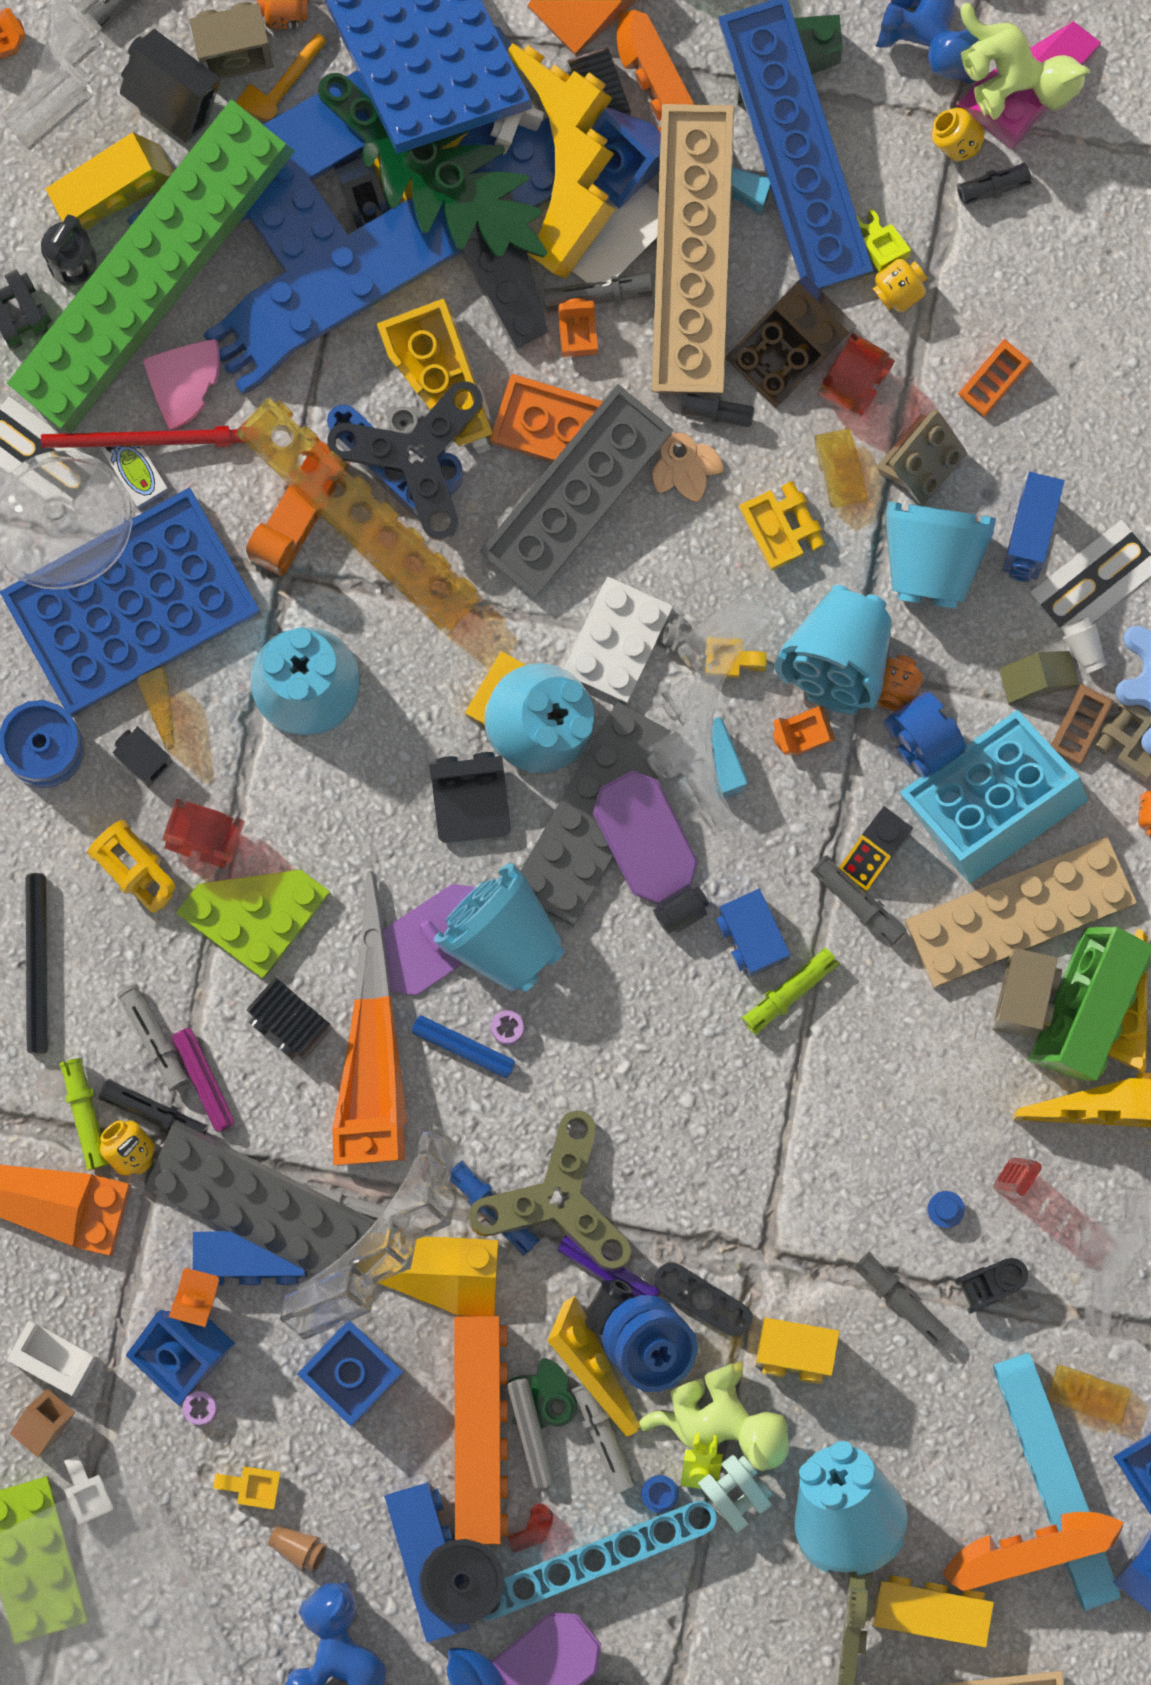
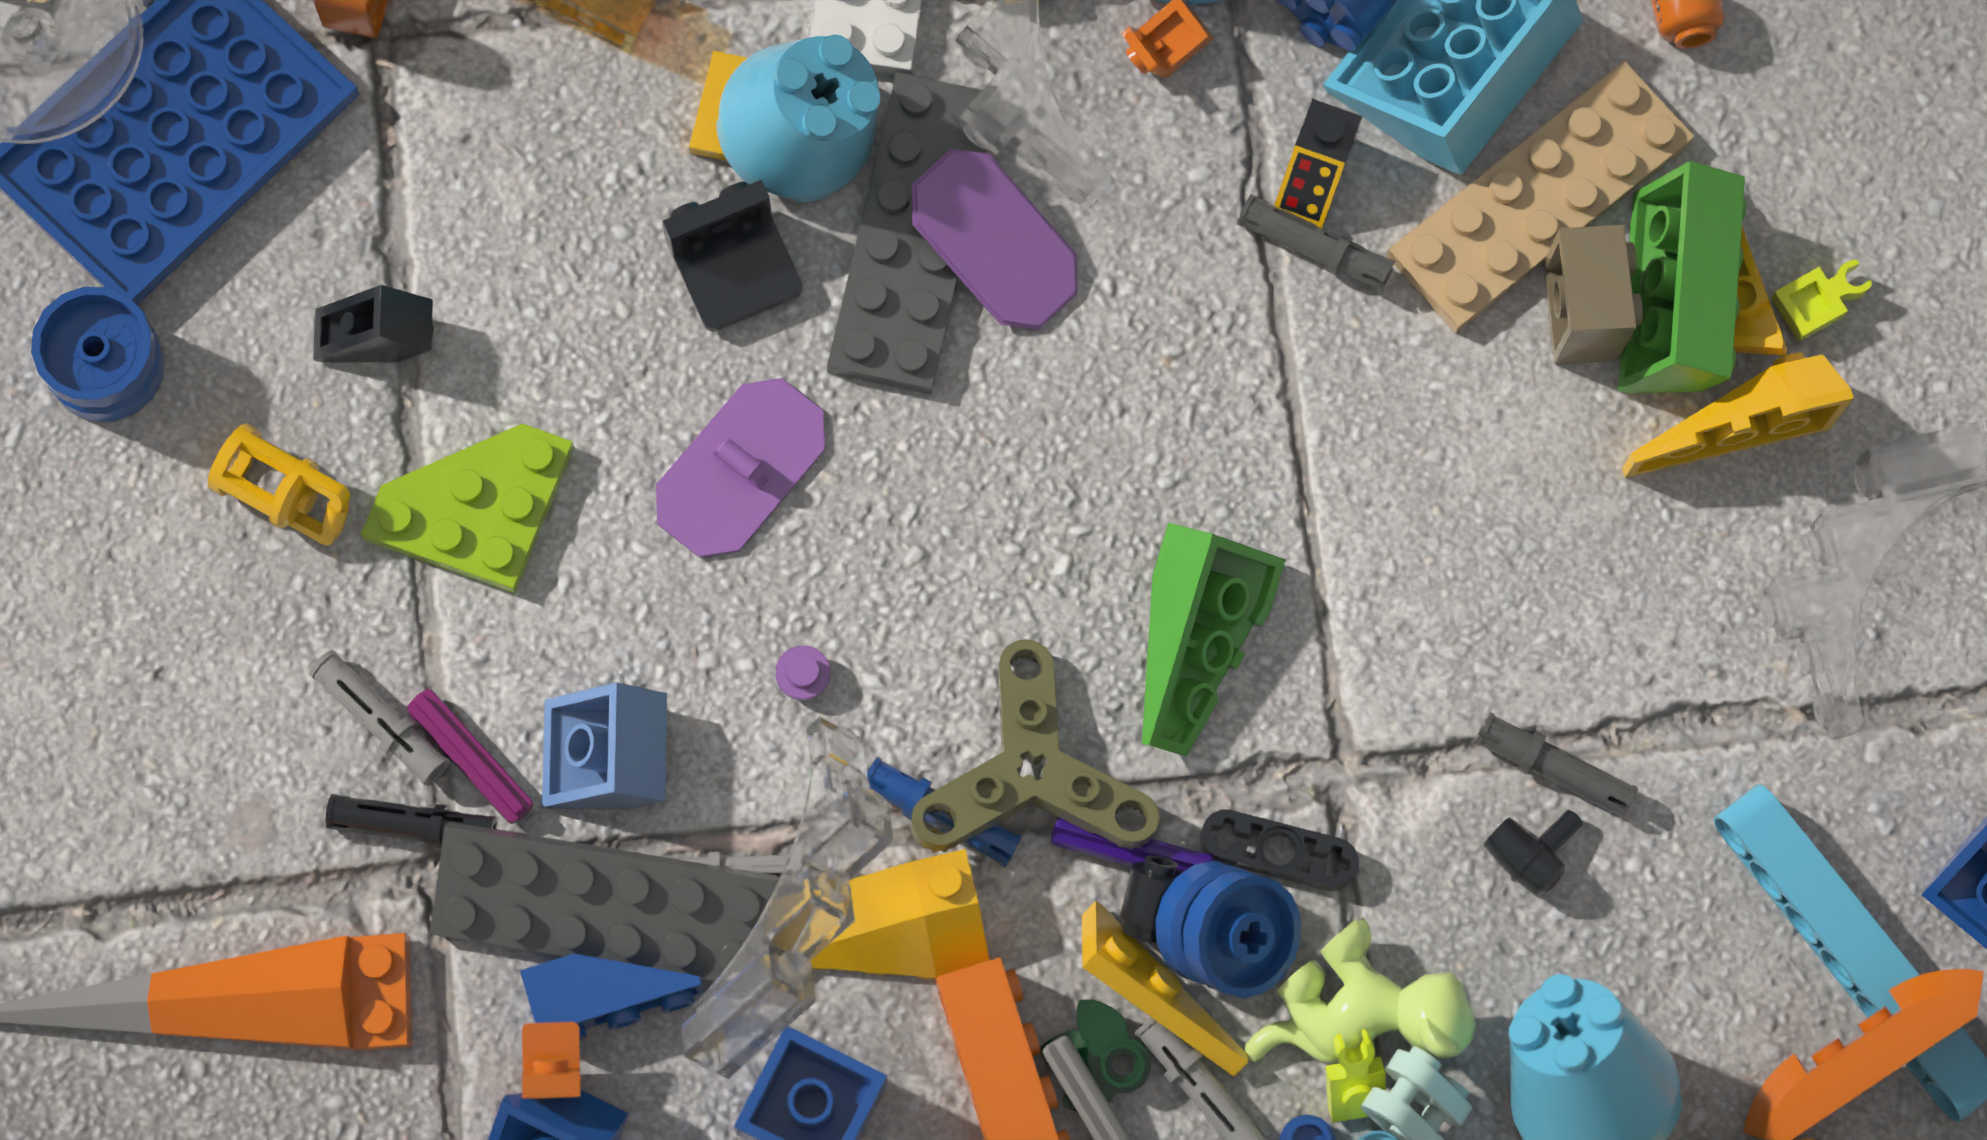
camera: 25 degrees left, 5 degrees down
(36, 963) = (179, 665): black axle -> none
(83, 1111) = (300, 837): lime pin -> none
(127, 1148) = (387, 882): yellow head -> none
(141, 756) = (248, 332): black brick -> none
(157, 696) = (243, 243): clear yellow slope -> none
(203, 832) = (366, 408): clear red brick -> none
(223, 776) = (374, 327): none -> black slope
(288, 1019) = (568, 635): black brick -> none
(290, 1102) = (605, 748): none -> medium blue slope
(311, 700) = (449, 163): medium azure cone -> none
(371, 1094) = (720, 708): orange plate -> none
(432, 1089) = (802, 673): none -> medium lavender plate
(463, 1046) = (828, 600): blue axle -> none
(496, 1024) = (899, 556): lavender bush -> none
(502, 931) = (838, 419): medium azure cone -> none
(681, 909) = (1075, 323): black brick -> none
(701, 1129) = (1200, 614): none -> bright green wedge
(727, 764) = (1078, 106): medium azure slope -> none
(752, 933) = (1186, 327): blue brick -> none
(780, 999) = (1251, 407): lime pin -> none
(796, 1349) = (1437, 875): yellow brick -> none
(863, 1355) = (1529, 858): none -> black piece
(946, 1209) = (1576, 624): blue plate -> none
(990, 1284) = (1669, 710): black piece -> none
(1017, 1178) = (1663, 548): clear red slope -> none
(1089, 1395) = (1860, 820): clear yellow slope -> none

